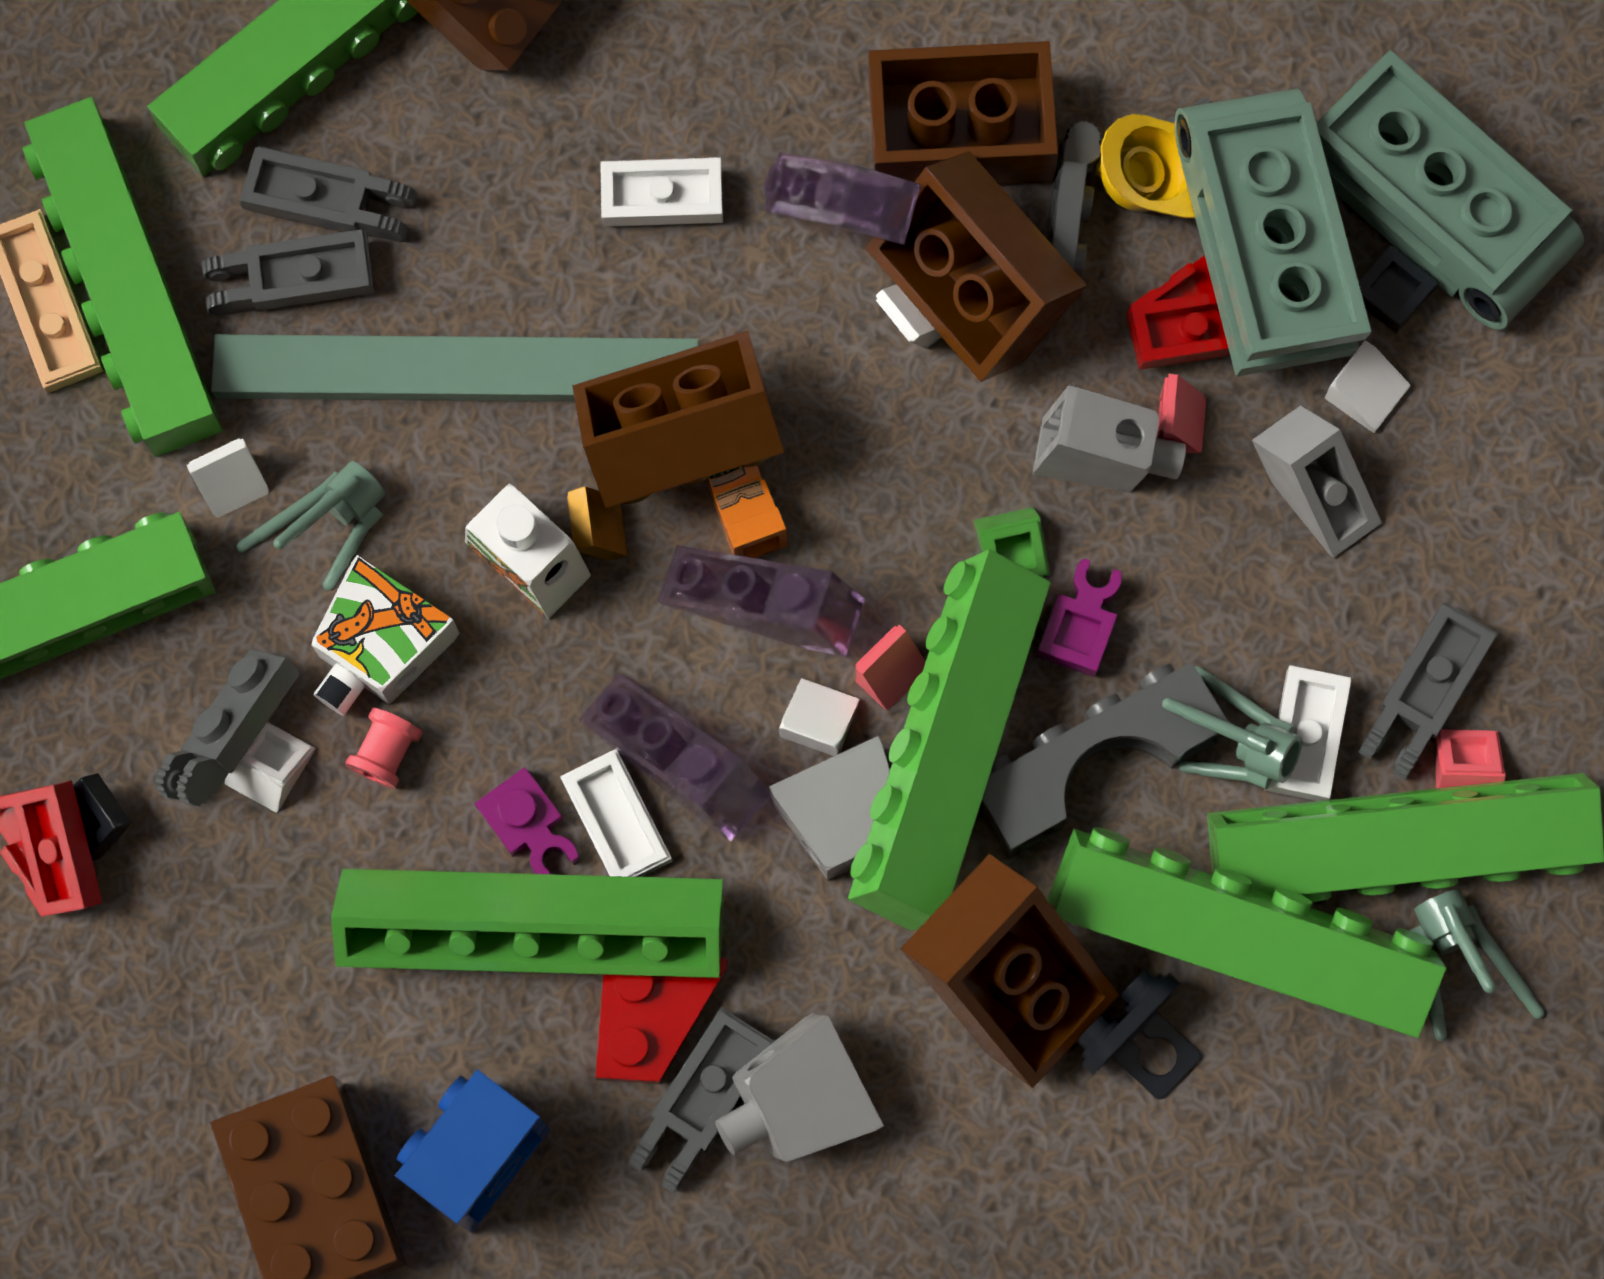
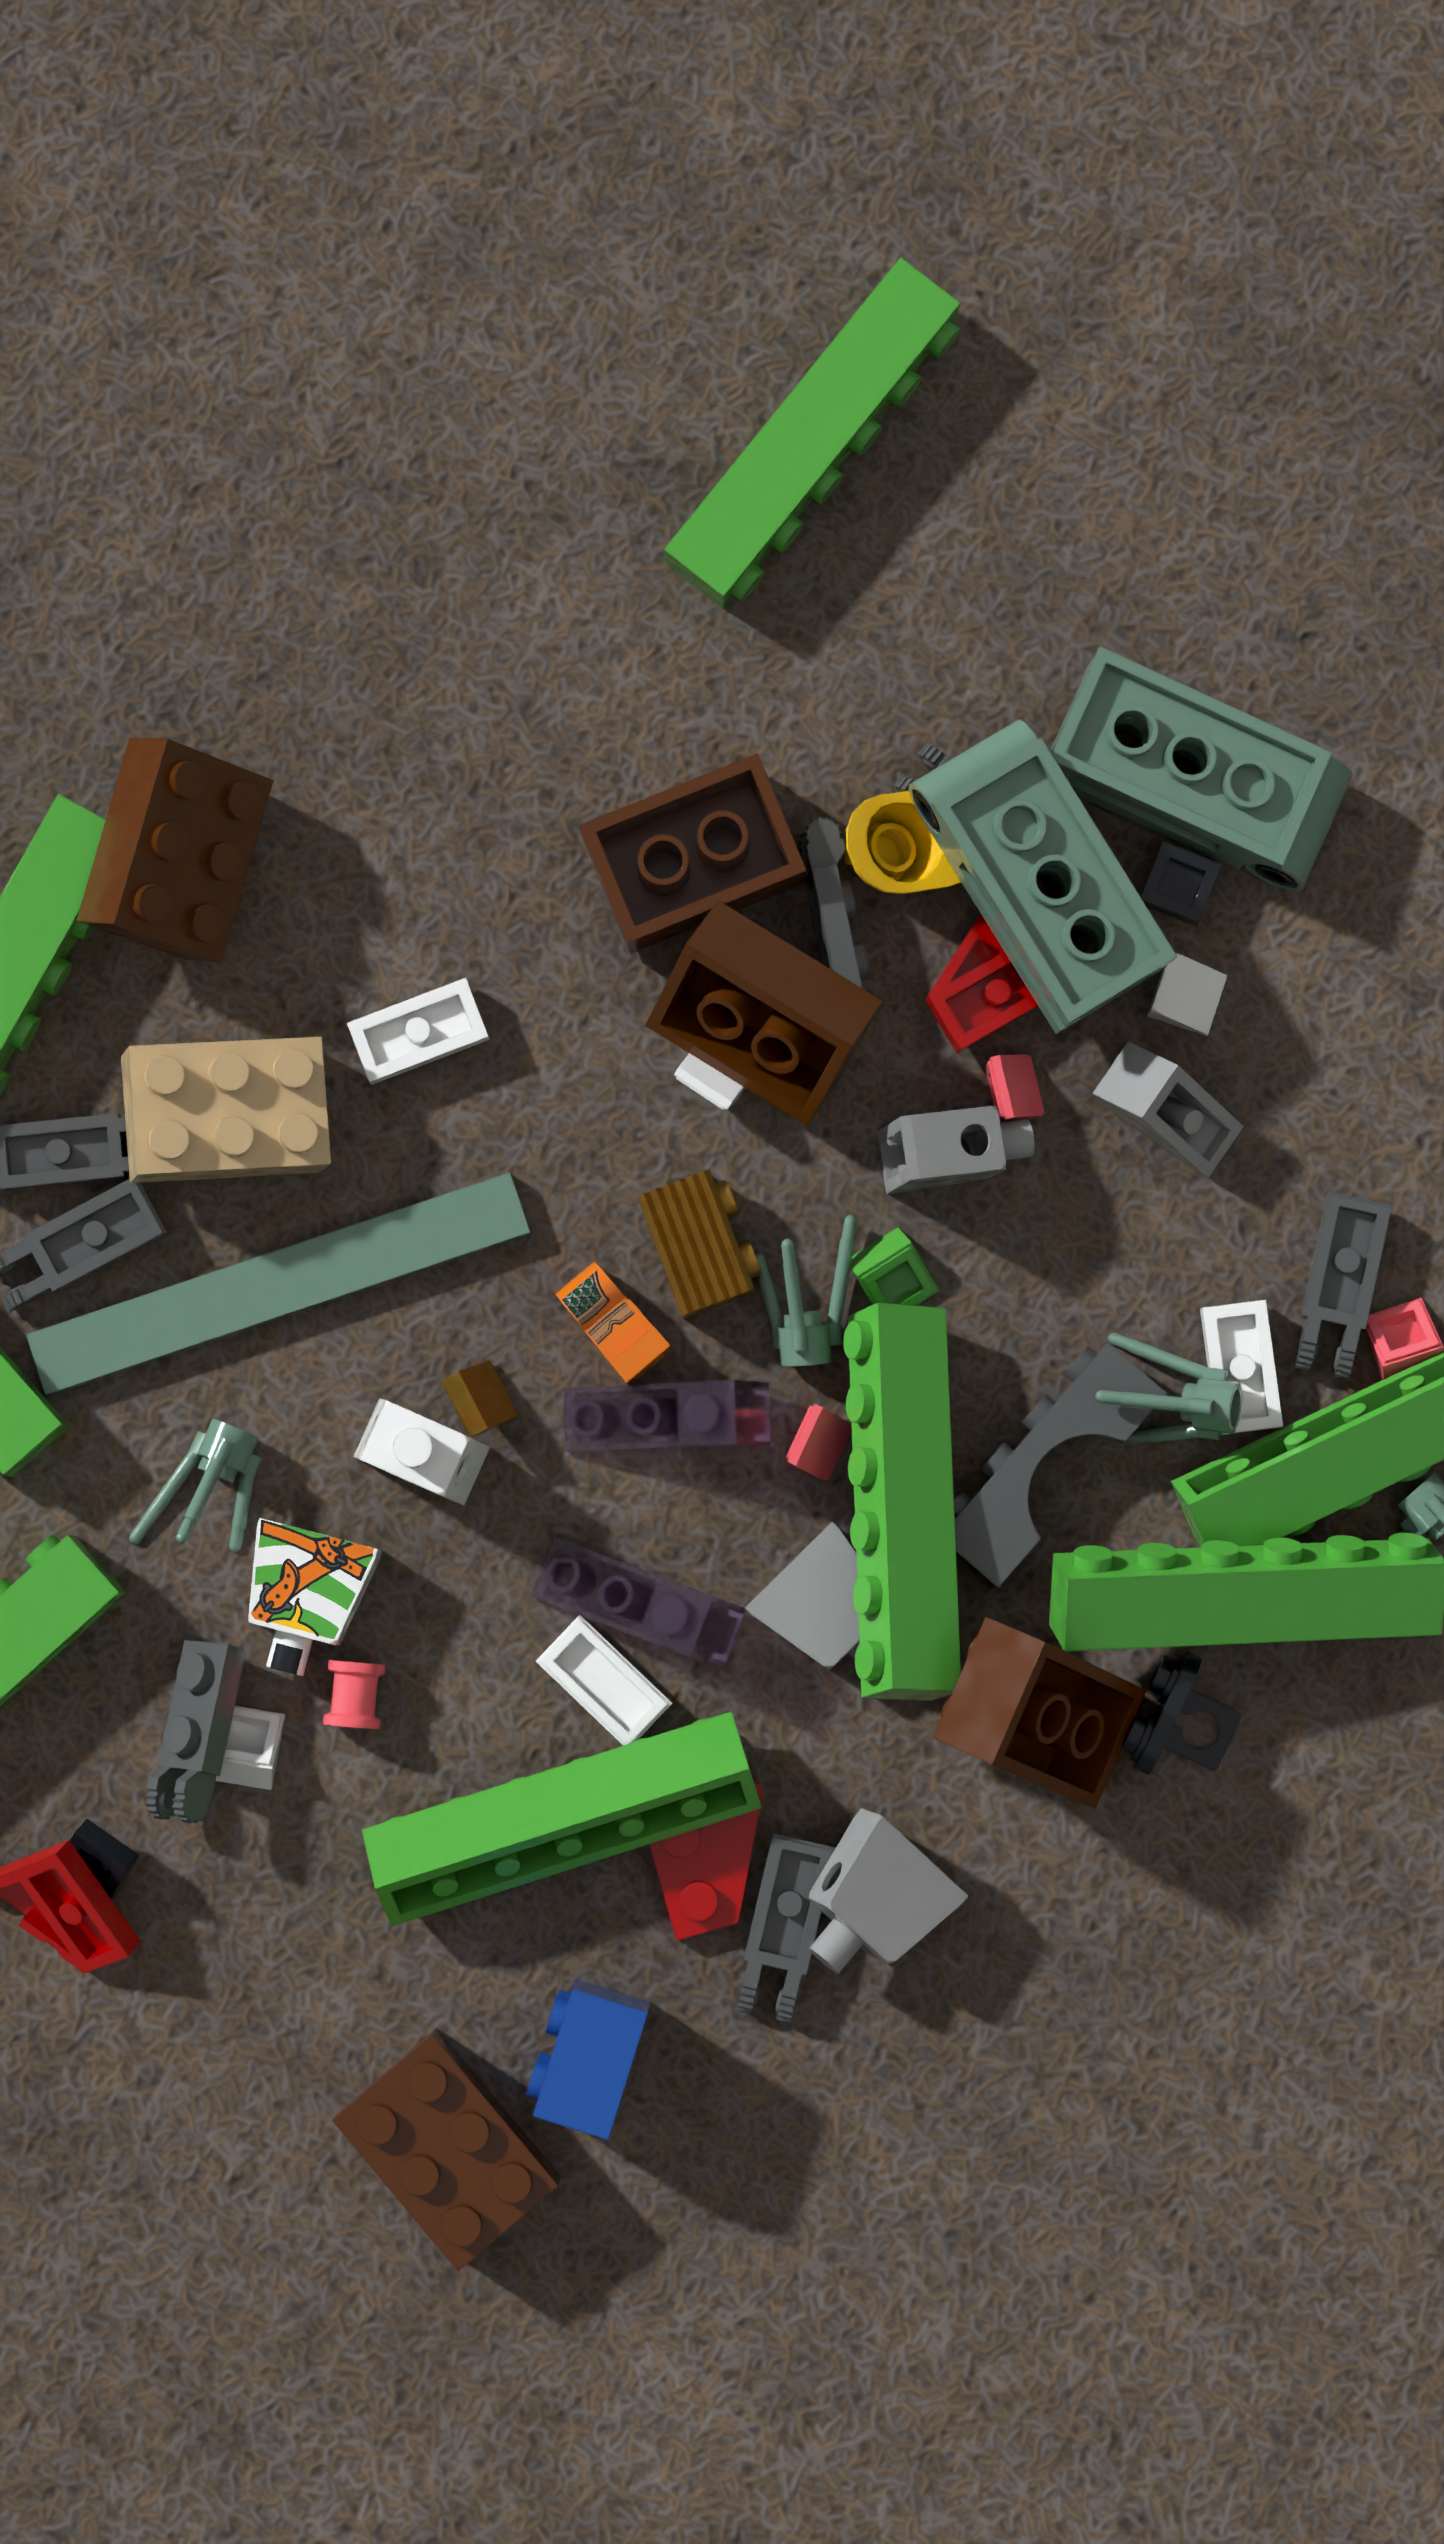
camera: 20 degrees left, 10 degrees up
(228, 477) = (98, 1477): white slope -> none
(464, 194) = (225, 1109): none -> tan brick
(523, 818) = (513, 1711): magenta plate -> none
(676, 420) = (524, 1274): reddish brown brick -> none
(818, 717) = (764, 1512): white slope -> none
(841, 196) = (606, 990): clear purple slope -> none
(844, 454) = (698, 1243): none -> pearl gold brick
(910, 566) = (801, 1334): none -> sand green plant
(1079, 627) = (986, 1340): magenta plate -> none

